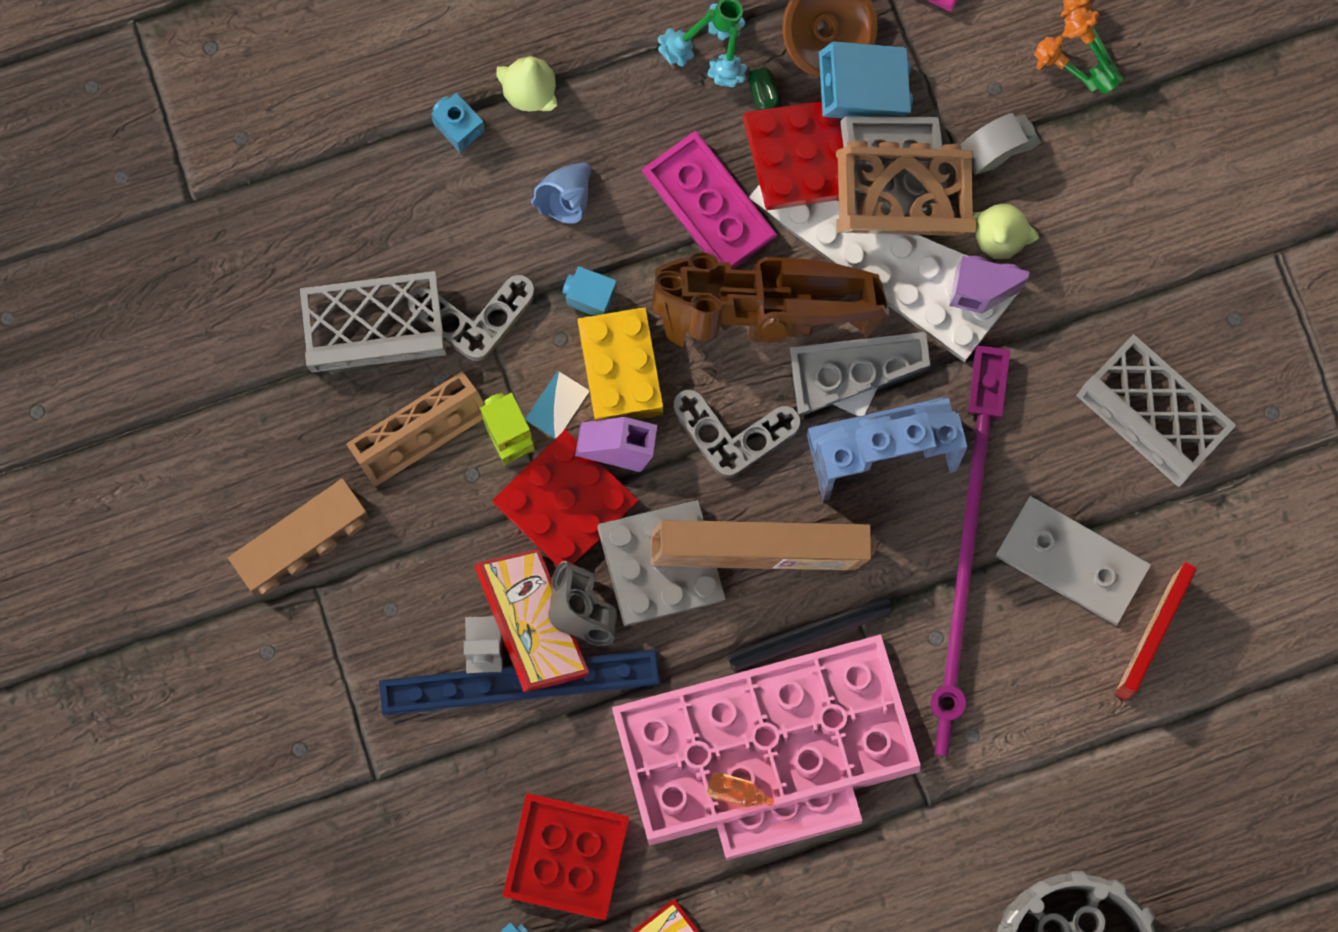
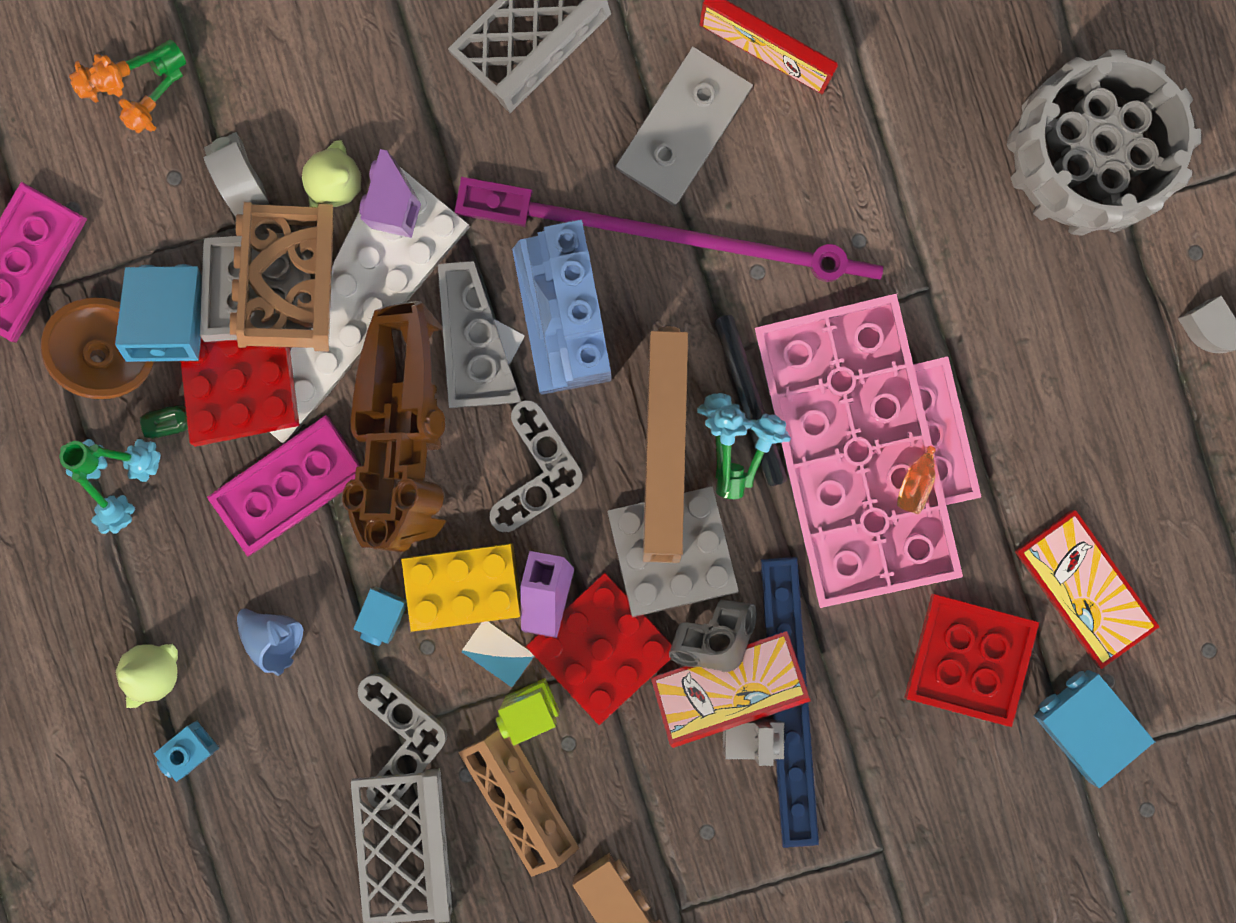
camera: 90 degrees left, 10 degrees up
(787, 599) = (726, 423): none -> medium azure plant

